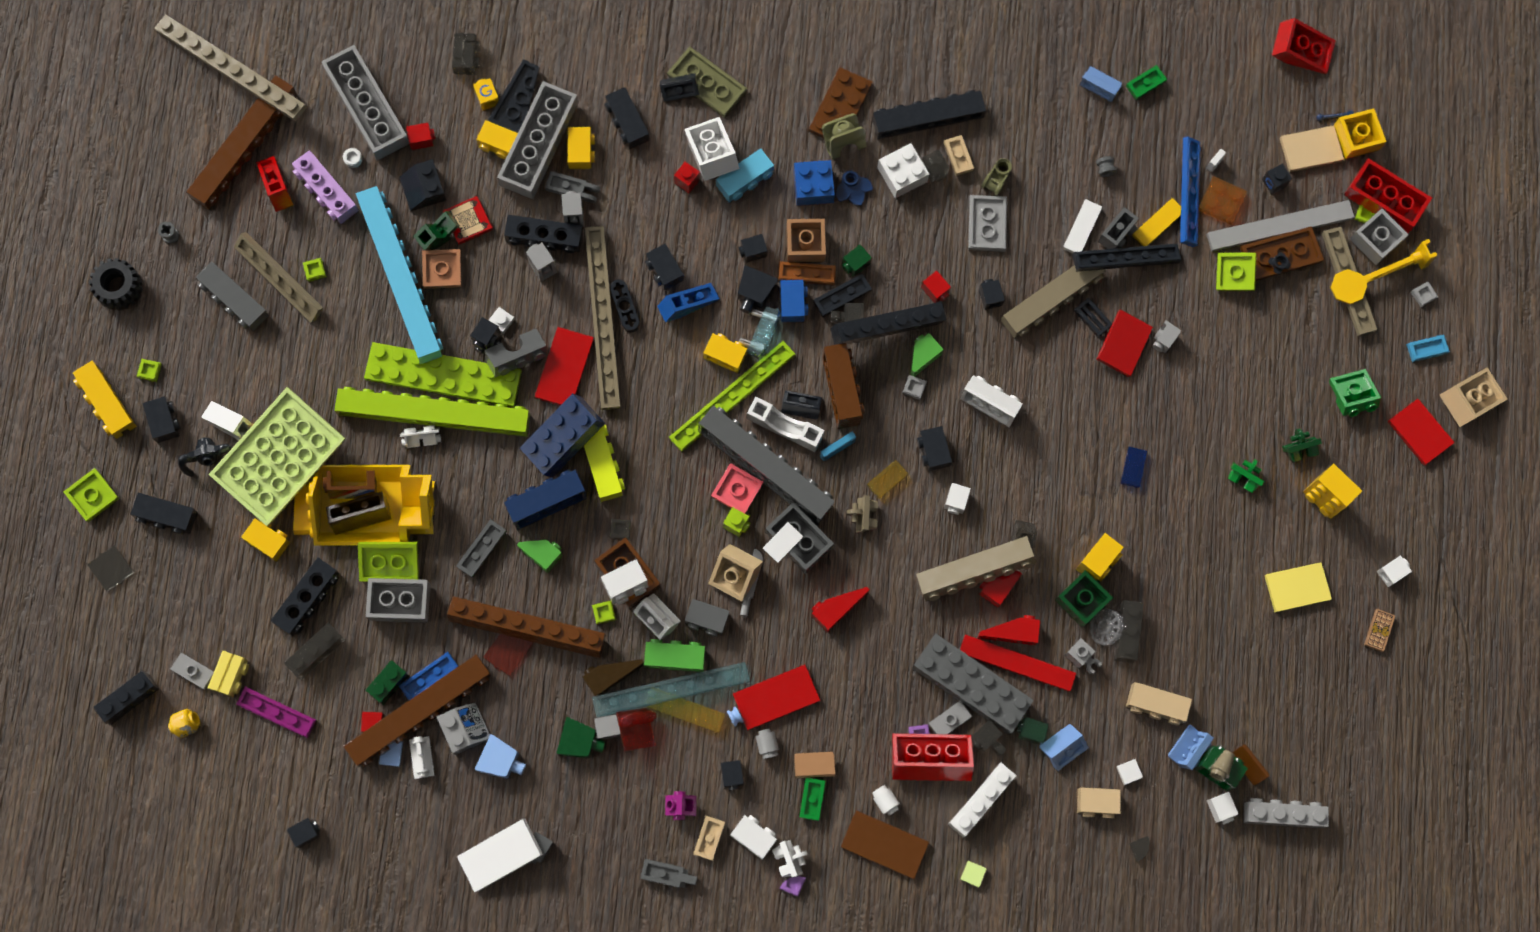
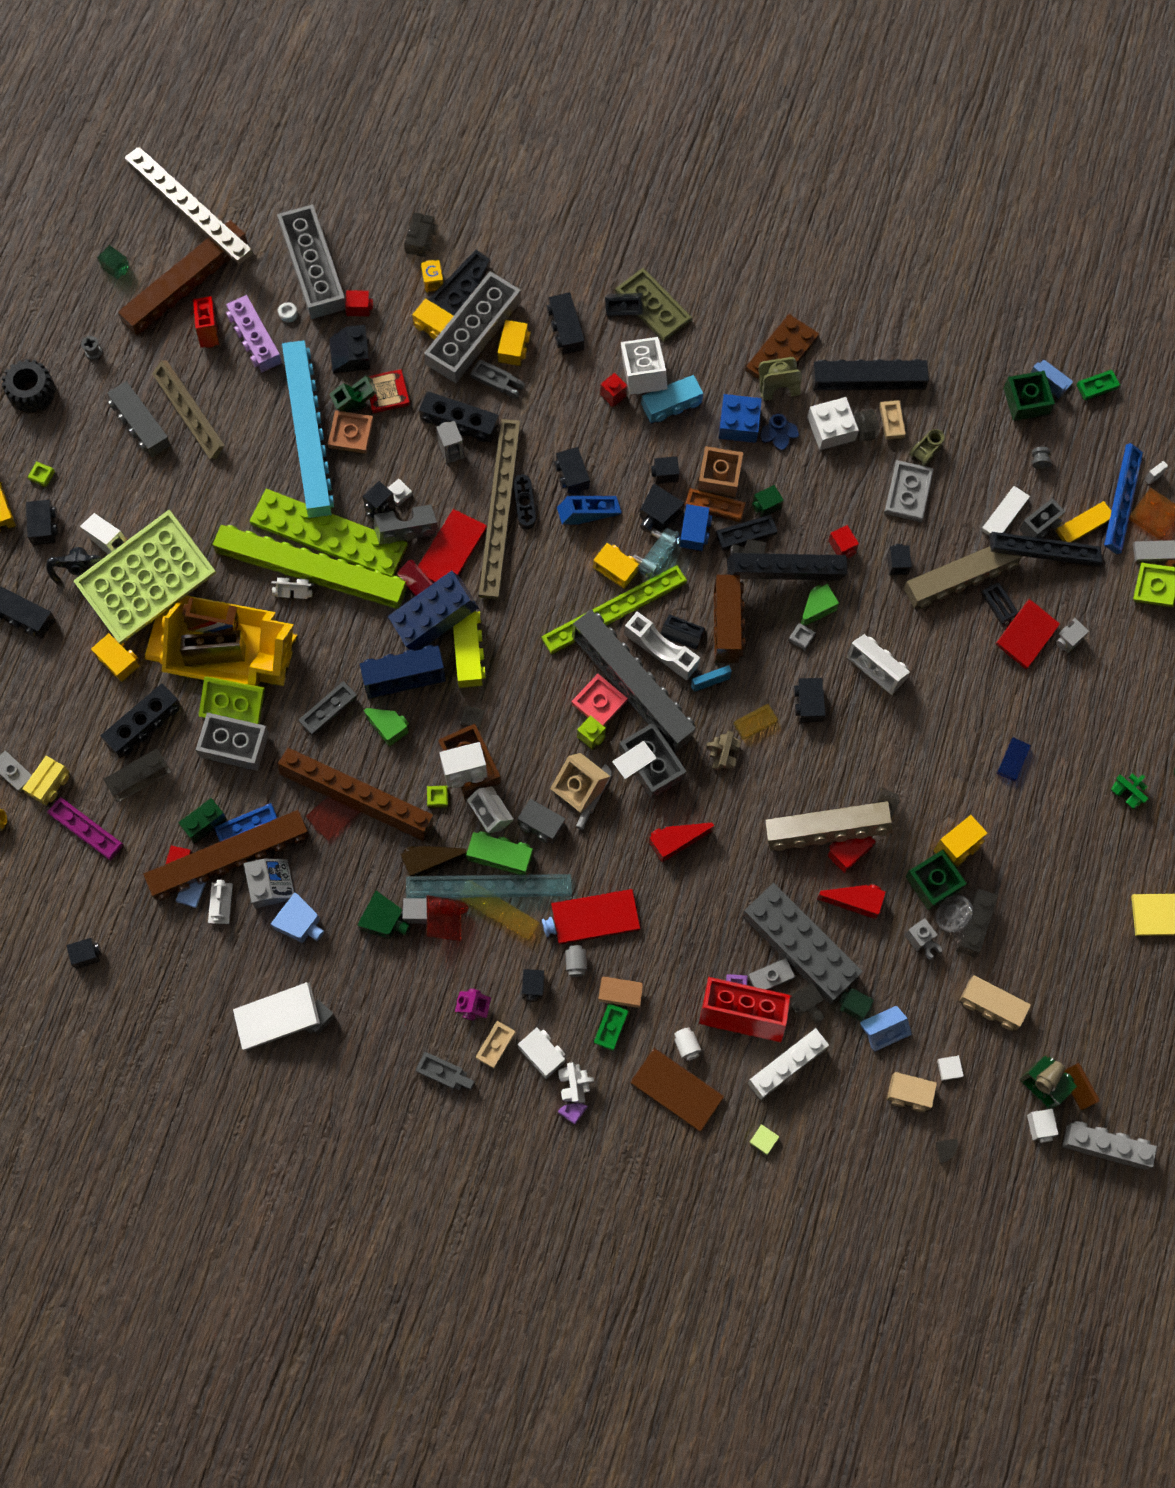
camera: 15 degrees right, 5 degrees down
(169, 140) = (113, 262): none -> clear green brick
(314, 269) = (225, 410): lime tile -> none
(537, 404) = (414, 577): none -> dark red tile
(572, 208) = (493, 396): light grey brick -> none
(957, 499) = (823, 754): white brick -> none
(1018, 663) = (855, 933): red tile -> none
(1083, 107) = (1028, 395): none -> dark green brick
(1190, 747) = (1019, 1055): medium blue bracket -> none

